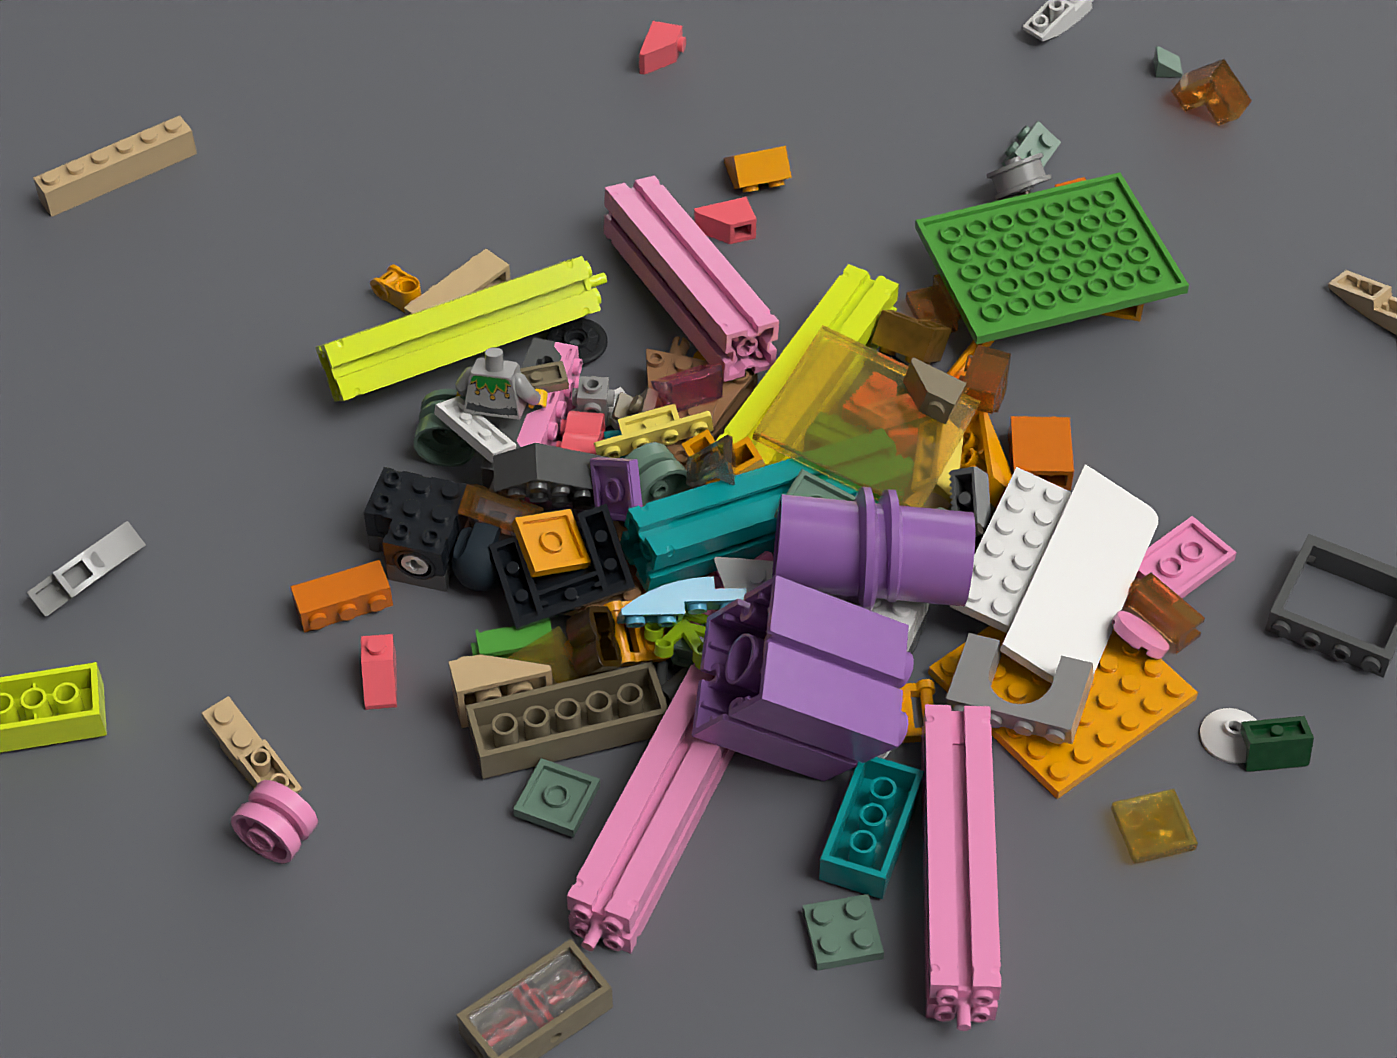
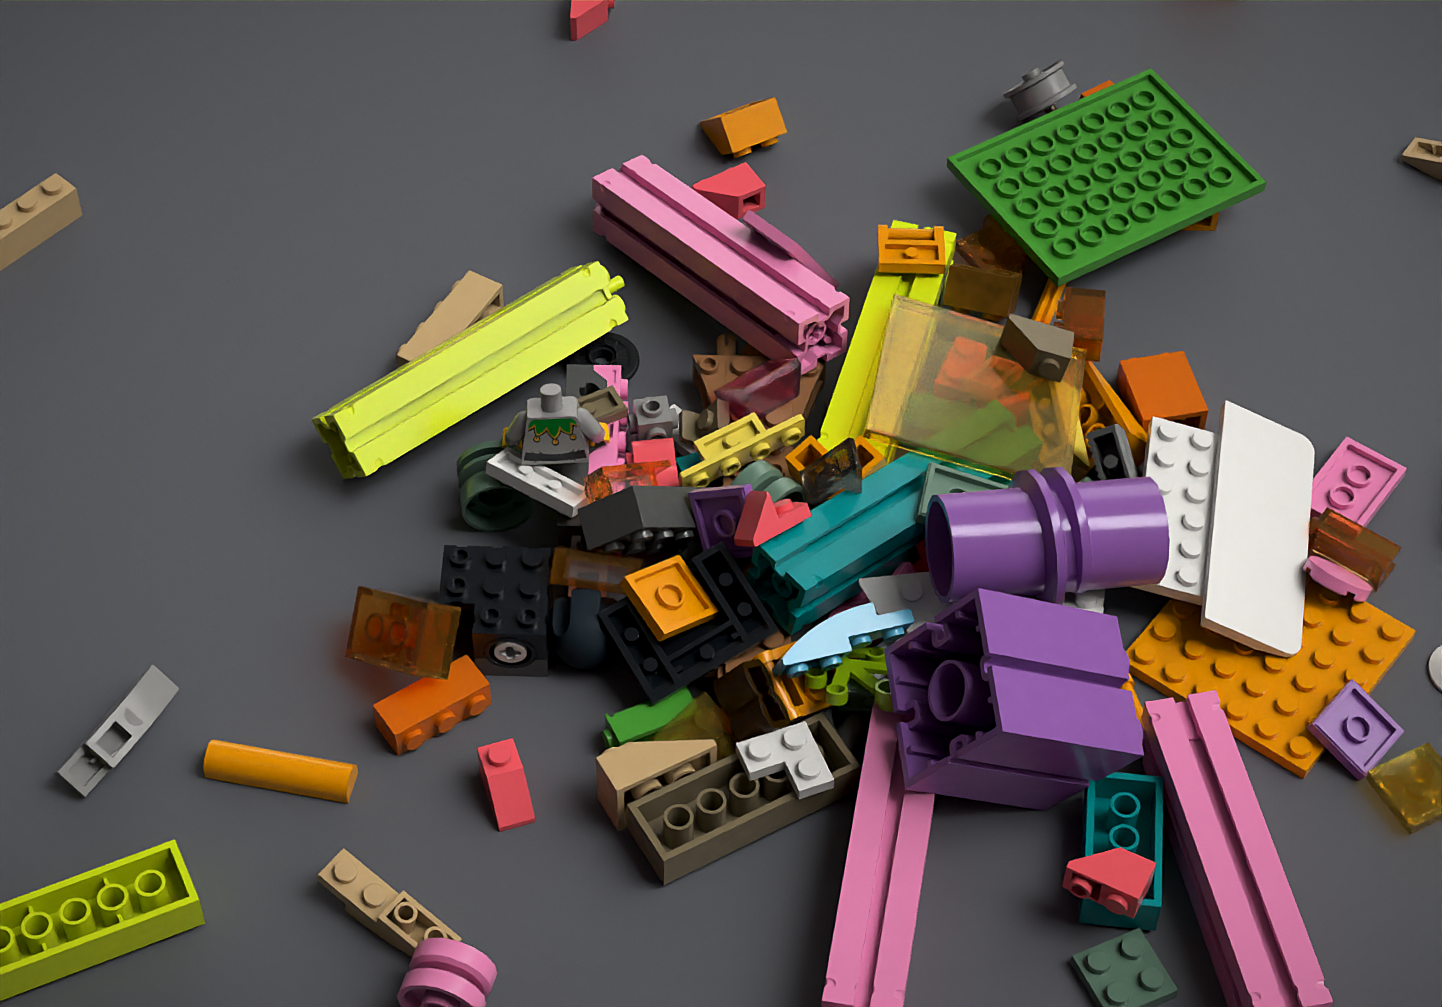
camera: 15 degrees left, 0 degrees up
(204, 625) = (279, 771): none -> light orange brick
(329, 532) = (403, 632): none -> clear orange brick
(396, 287) = (379, 332): light orange piece -> none
(554, 436) = (615, 478): none -> clear orange window
(557, 797) = (757, 889): sand green plate -> none
(609, 686) = (787, 750): none -> white plate
(638, 493) = (765, 520): none -> coral slope
(752, 276) = (786, 245): none -> bright pink tile
(847, 846) = (1111, 879): none -> coral slope
(851, 291) = (911, 250): none -> light orange plate
(1032, 142) = (1036, 50): bracket -> none
(1051, 716) = (1278, 689): light grey arch -> none
(1113, 765) = (1355, 729): none -> medium lavender tile

